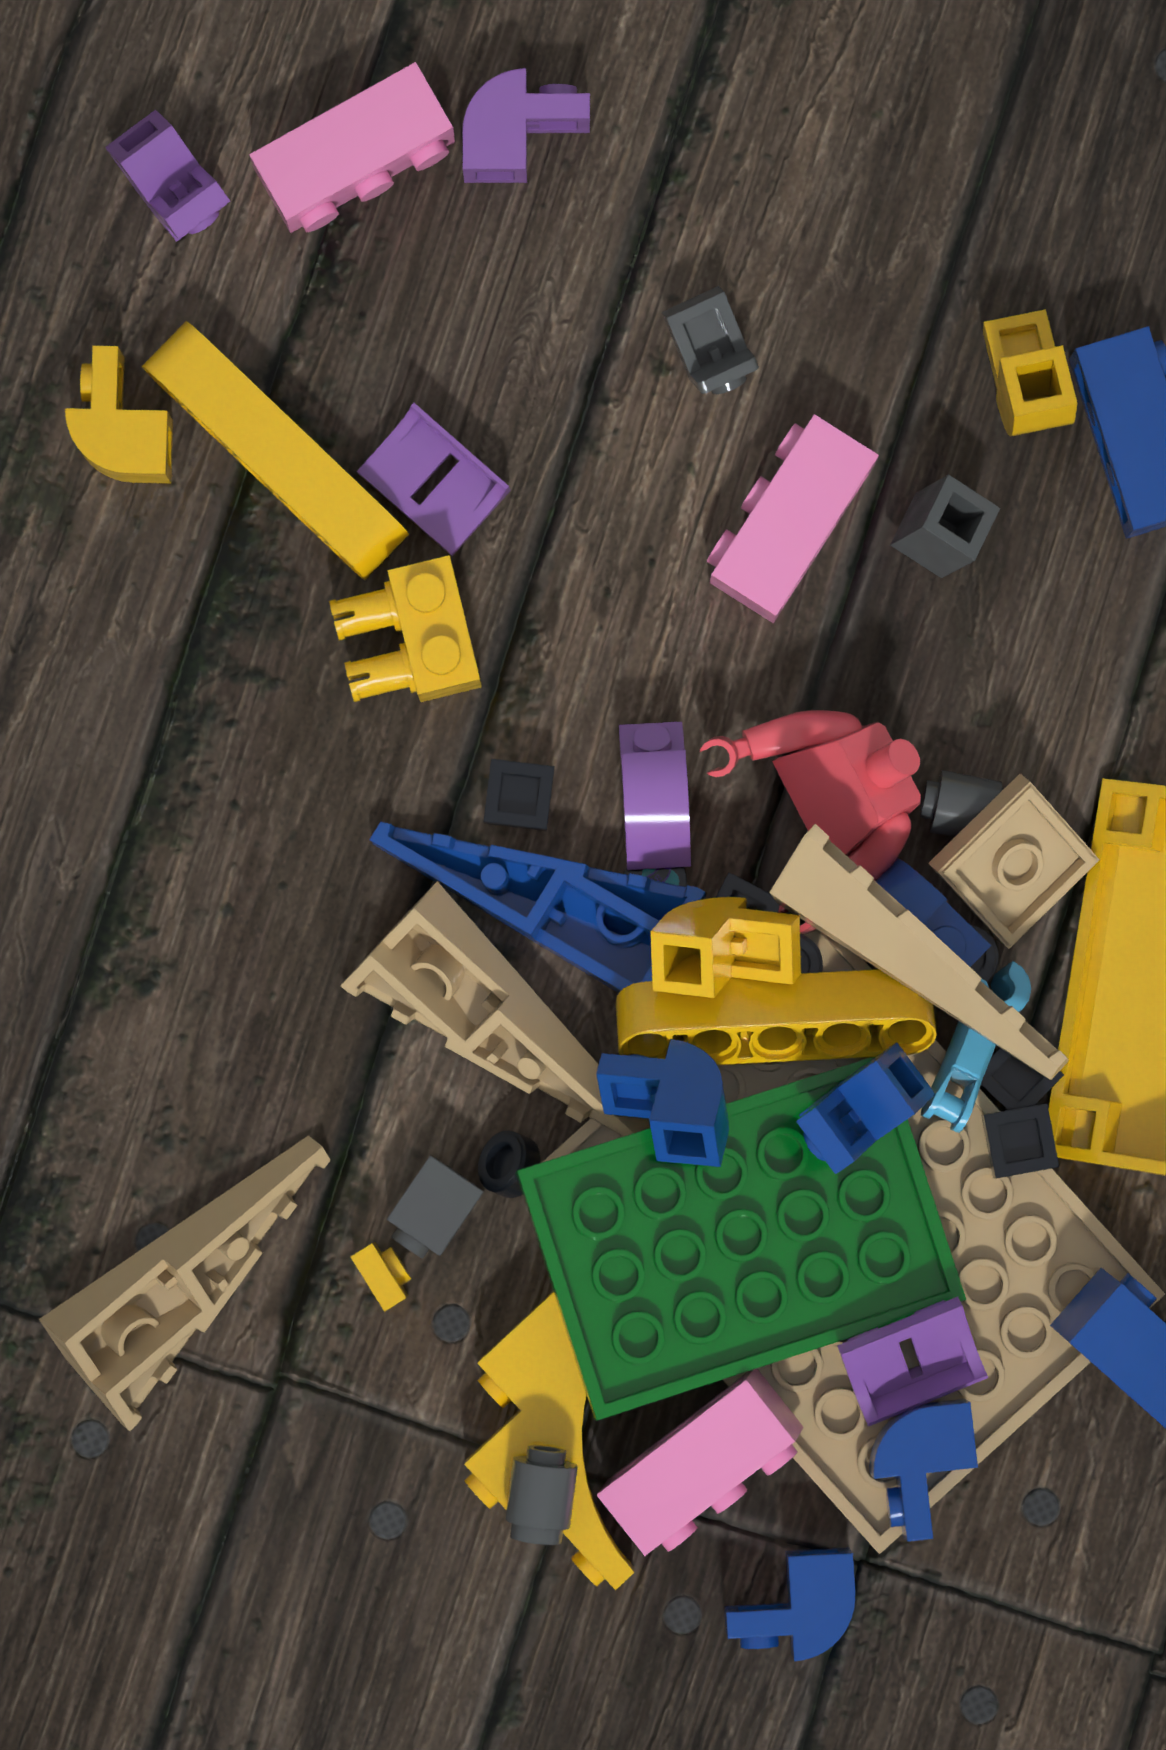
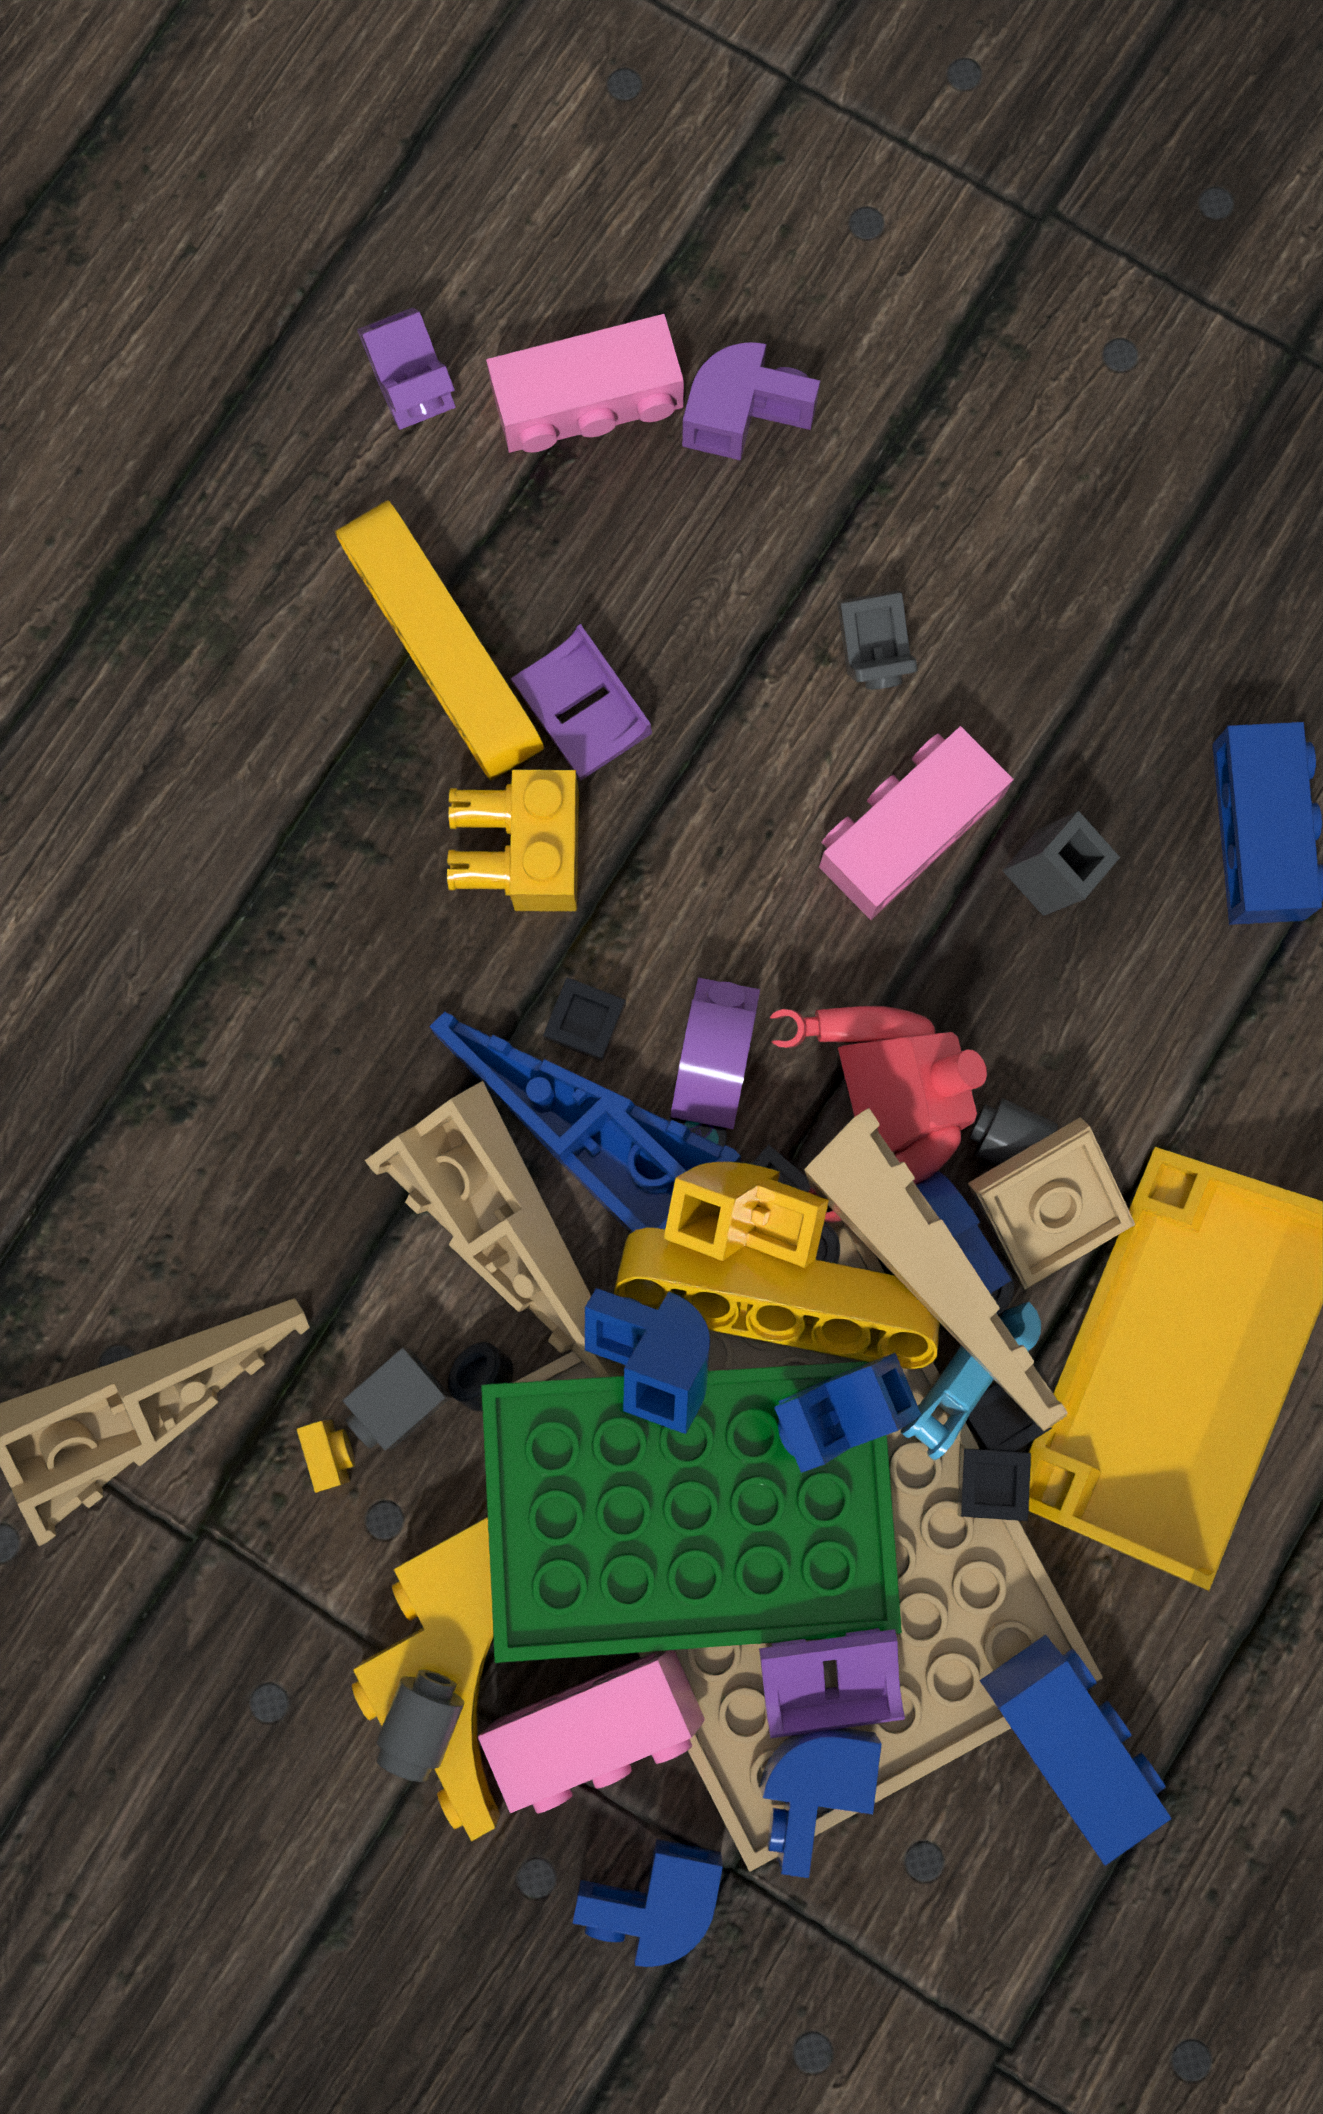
camera: 15 degrees right, 5 degrees down
(116, 441) = (292, 591): yellow brick -> none
(1029, 374) = (1177, 742): yellow brick -> none

